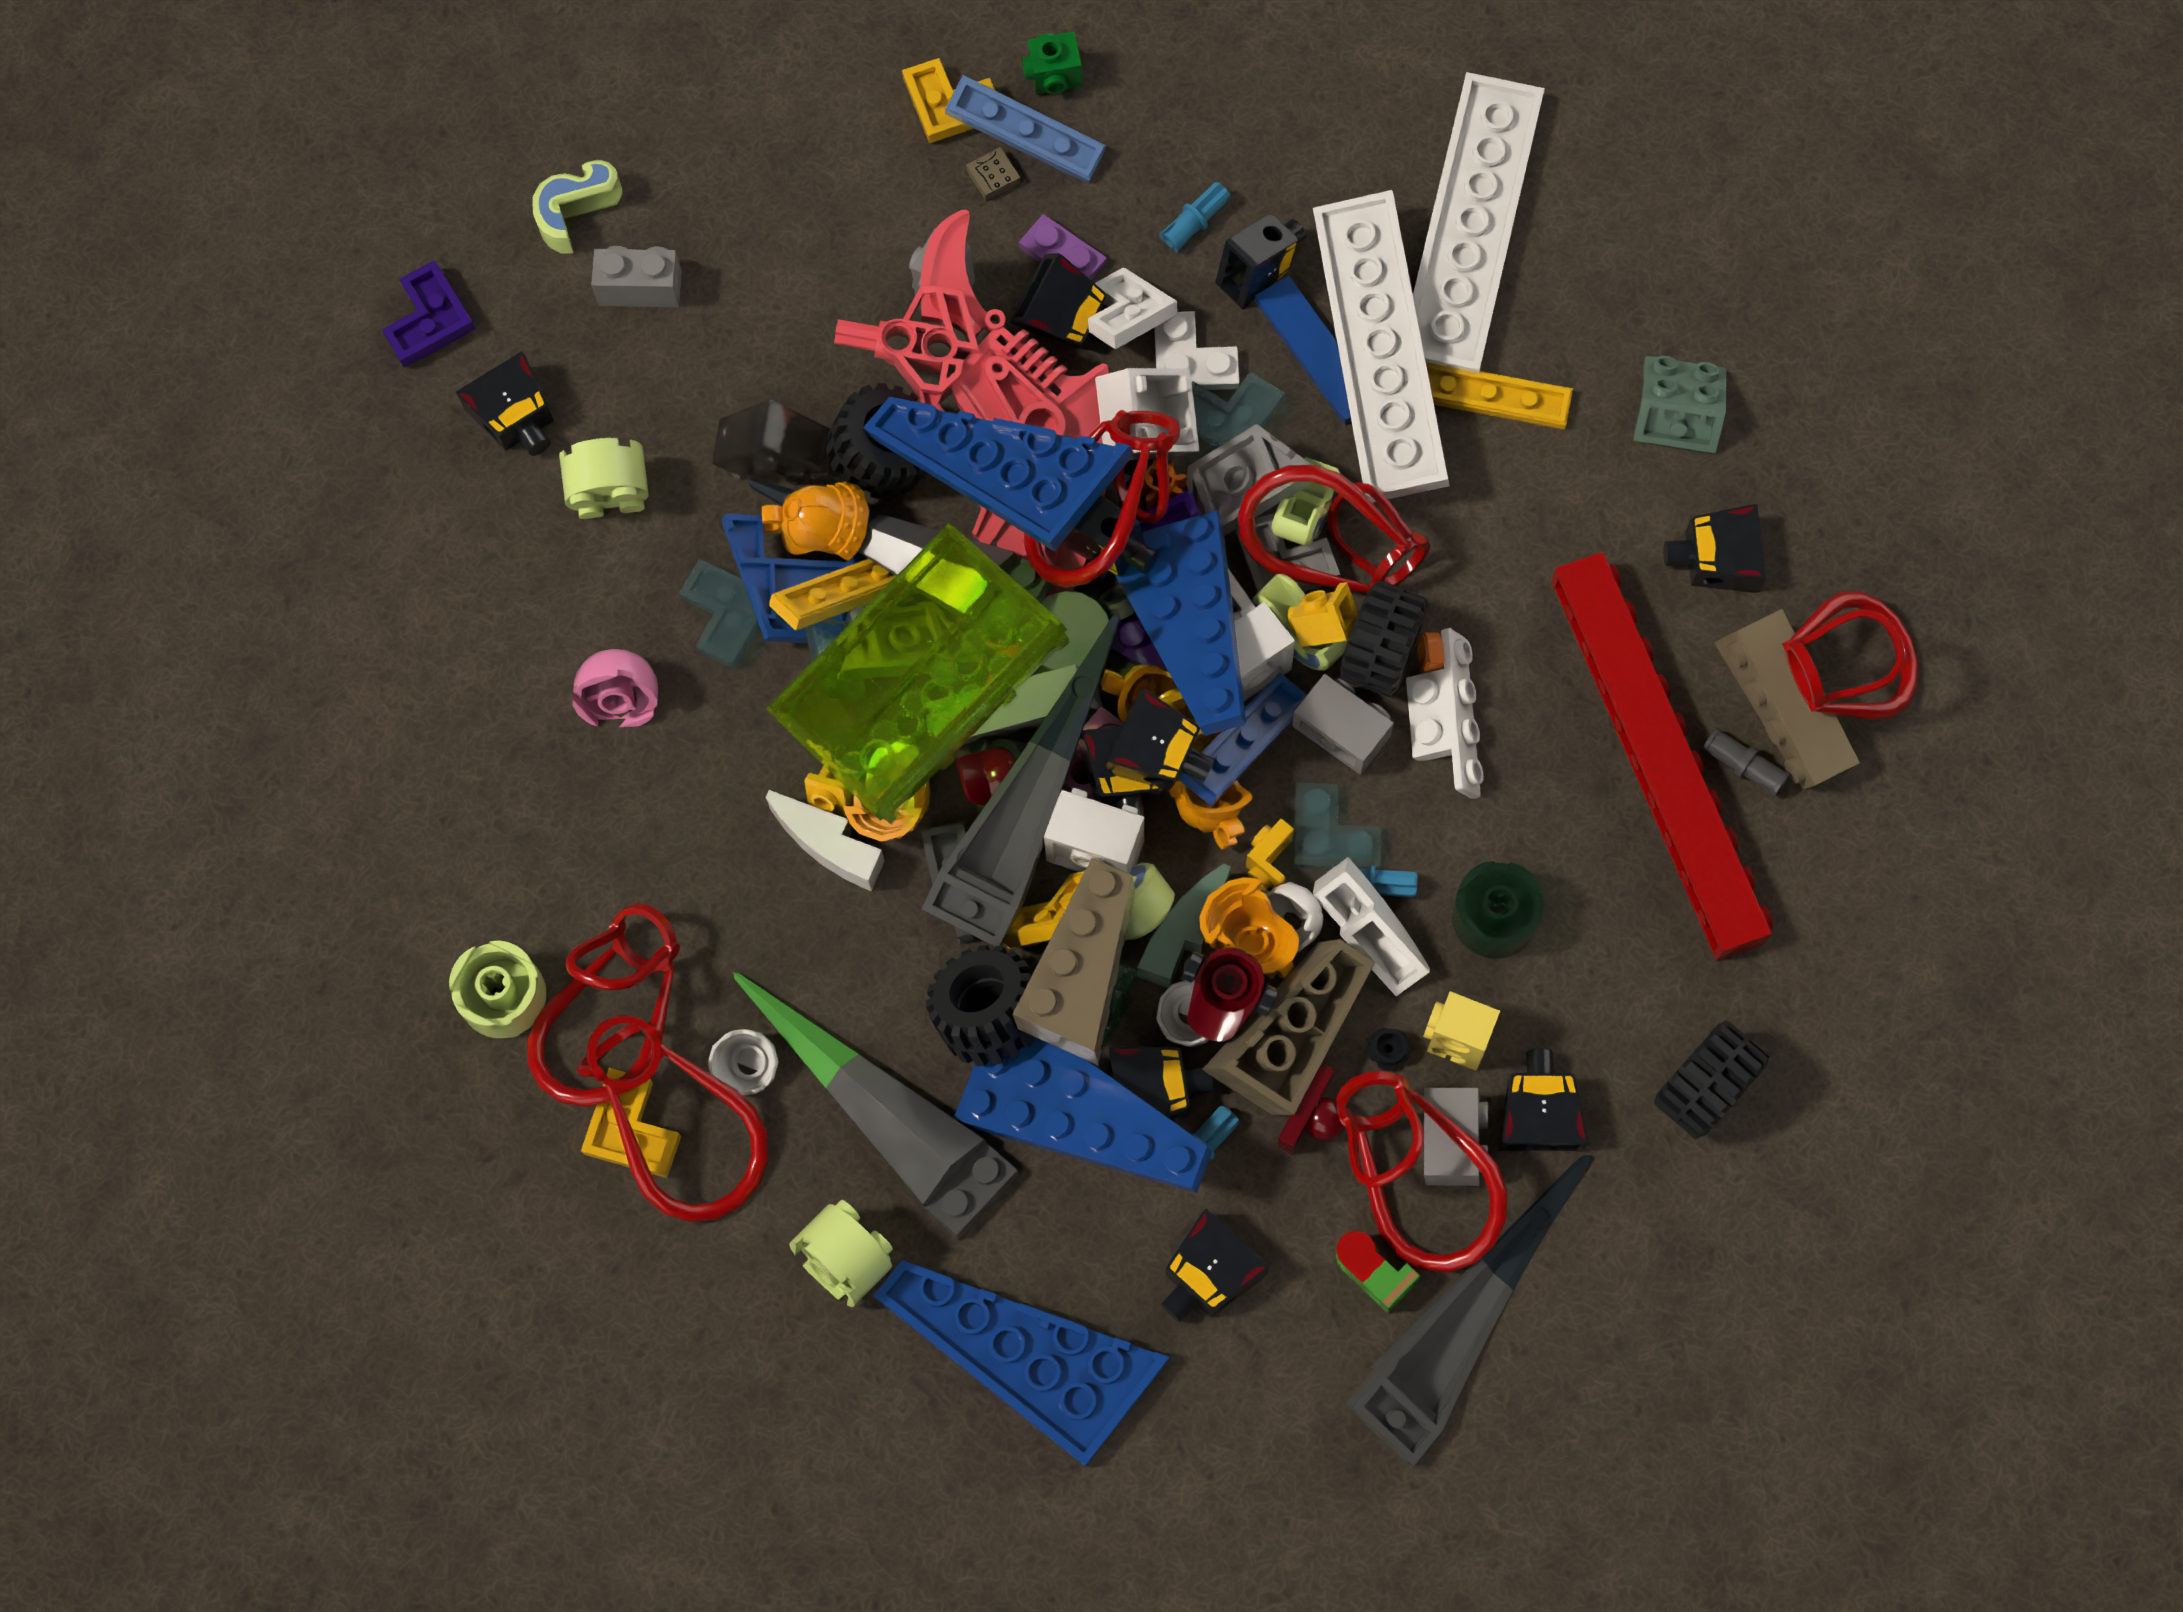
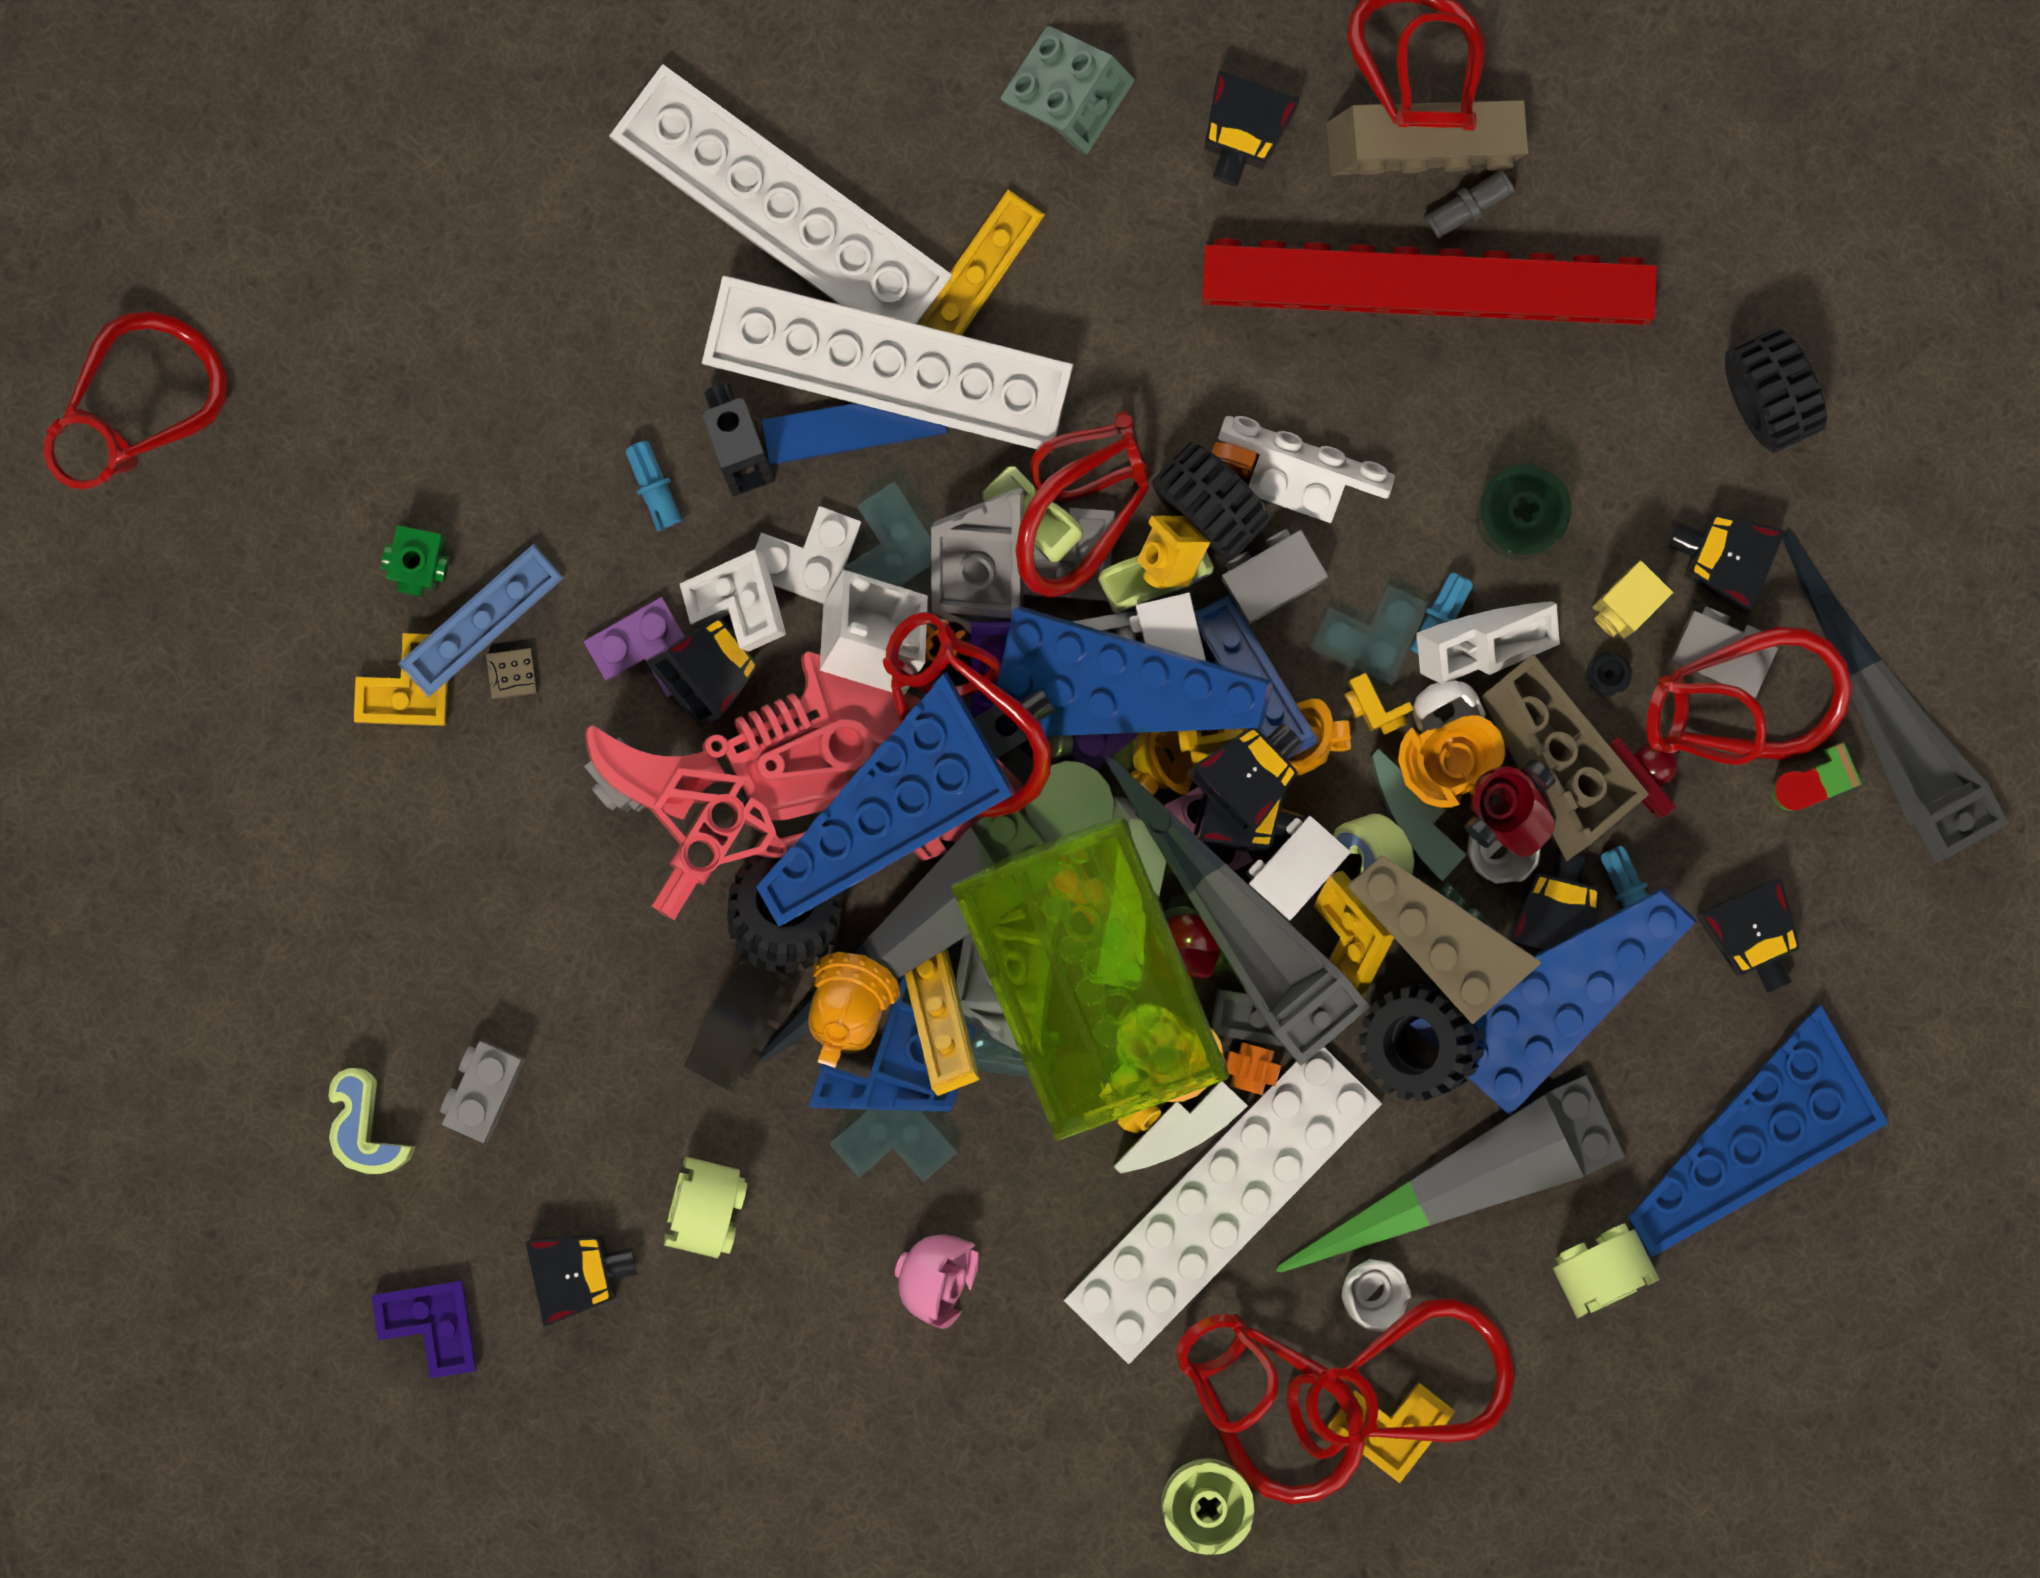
camera: 70 degrees left, 15 degrees up
(778, 904) = (1222, 1203): none -> white plate
(903, 877) = (1252, 1068): none -> orange gear

